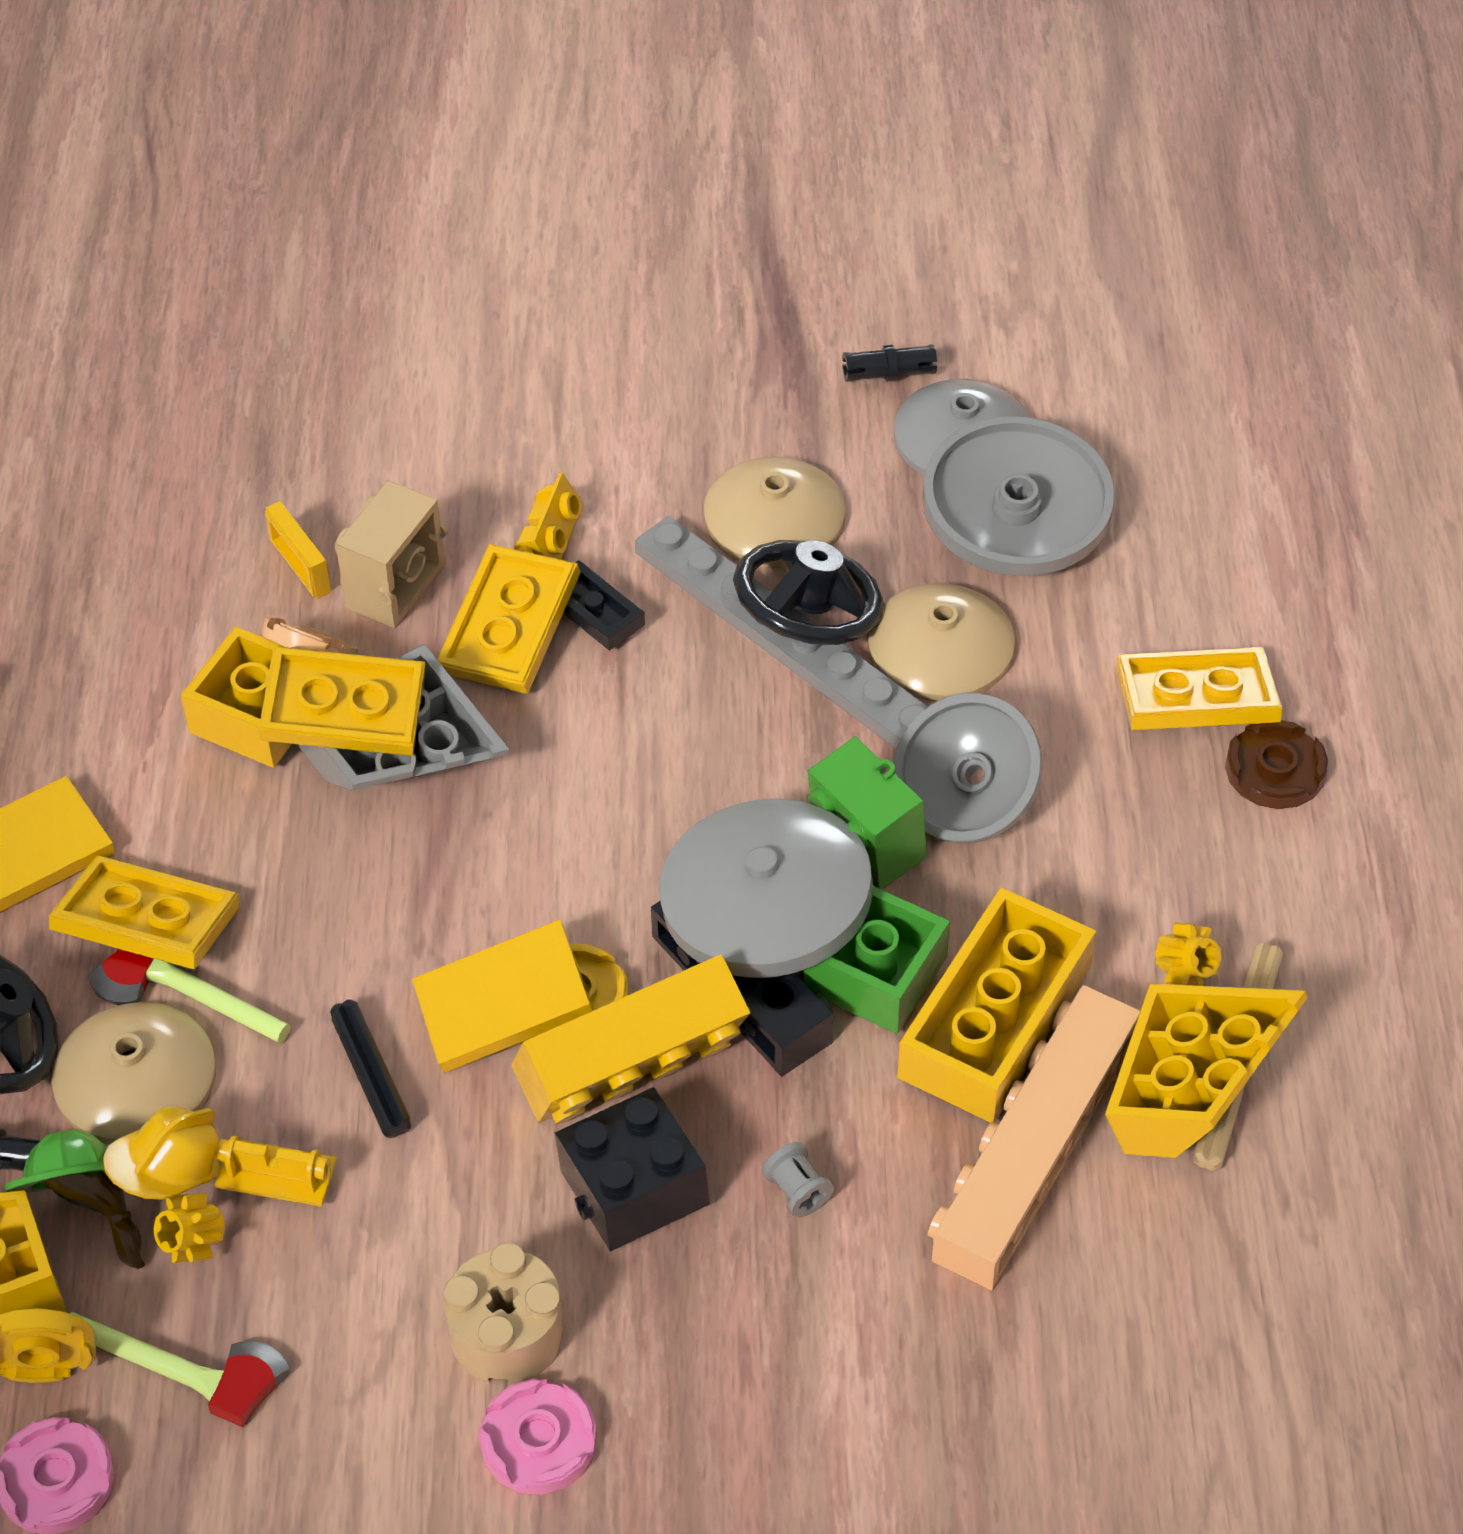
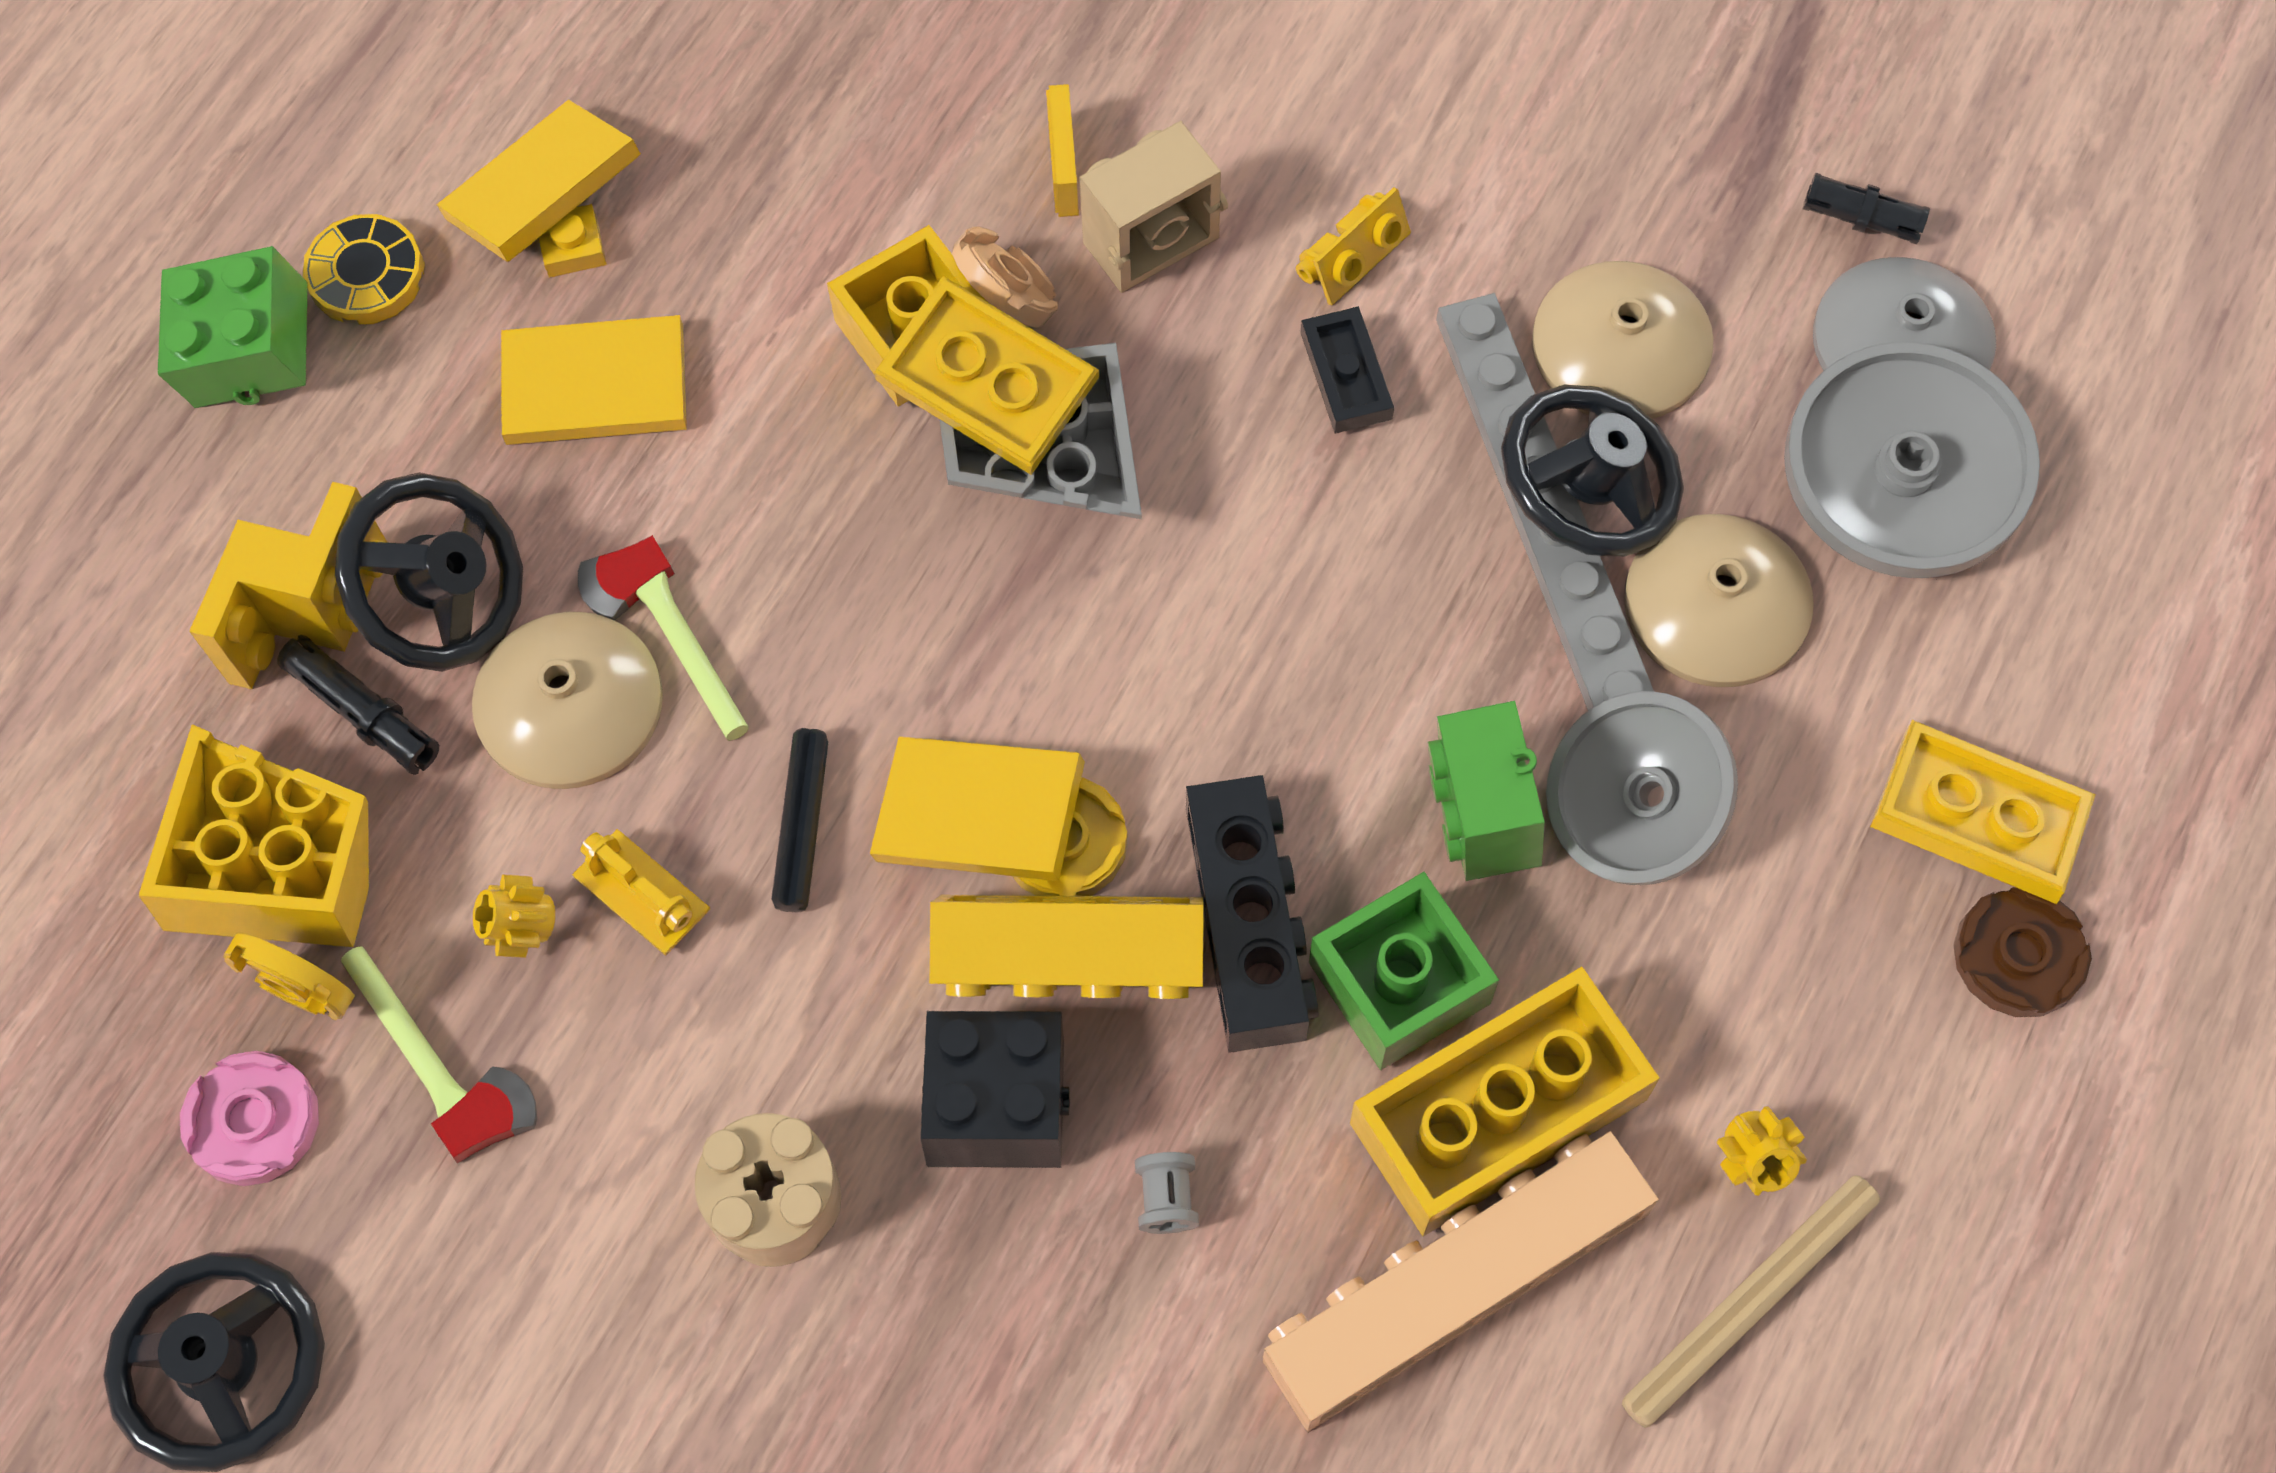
camera: 30 degrees right, 15 degrees up
(74, 1170) = (436, 806): piece -> none
(144, 912) = (670, 519): yellow tile -> none
(166, 1155) = (524, 824): yellow piece -> none
(508, 618) = (1241, 343): yellow tile -> none
(537, 1436) = (735, 1340): bright pink tile -> none
(766, 887) = (1317, 833): light grey dish -> none
(1192, 1061) = (1678, 1299): yellow wedge -> none

